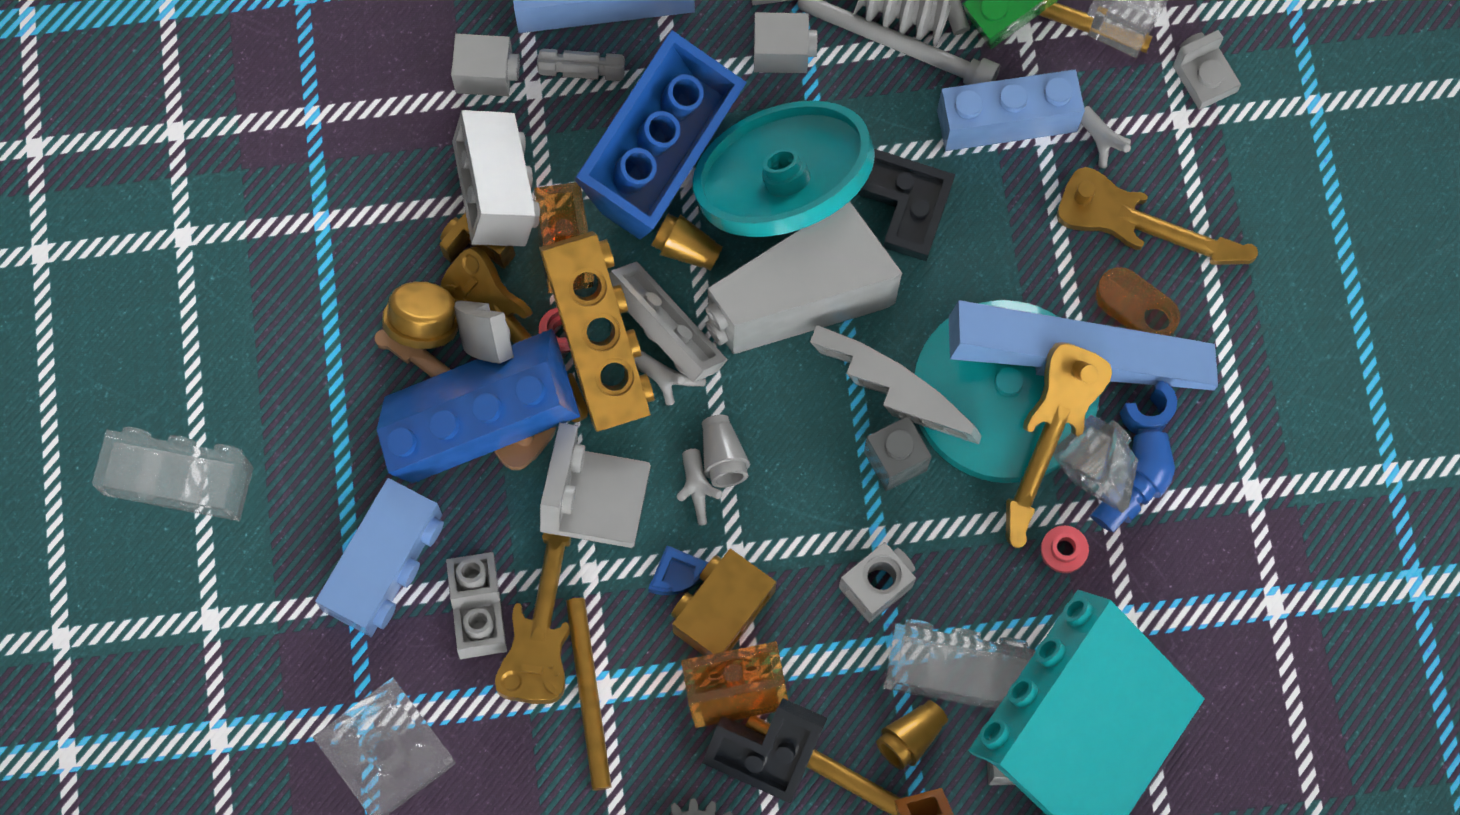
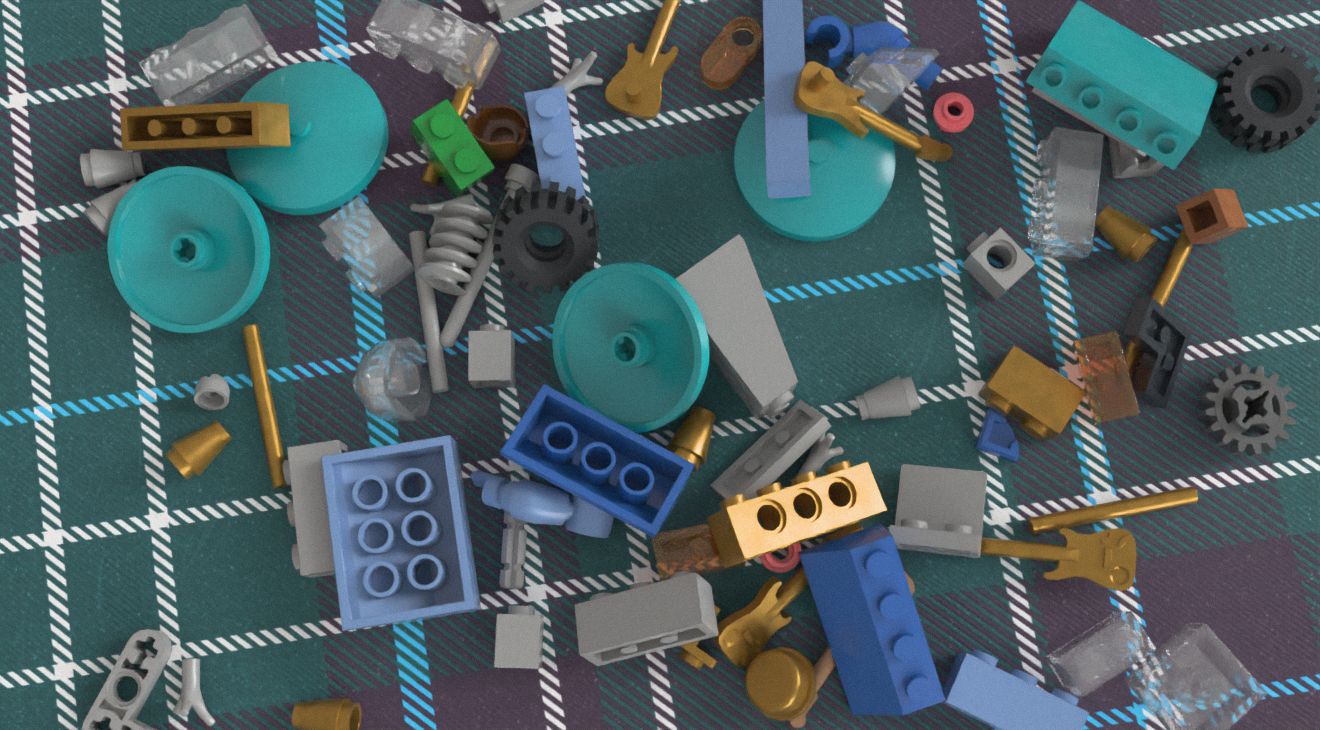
camera: 90 degrees left, 5 degrees up
(428, 654) = (1100, 653): none -> clear brick
(476, 605) = (1043, 614): light grey slope -> none
(483, 332) = (809, 617): light grey slope -> none
(618, 77) = (542, 504): none -> medium blue piece
(697, 484) = (919, 422): light grey bar -> none
(888, 78) = (539, 263): none -> black tyre
(897, 453) = (884, 247): dark grey brick -> none
(905, 391) = (836, 234): light grey slope -> none
(919, 200) = (645, 232): black plate -> none
(1036, 47) = (500, 131): none -> reddish brown hair

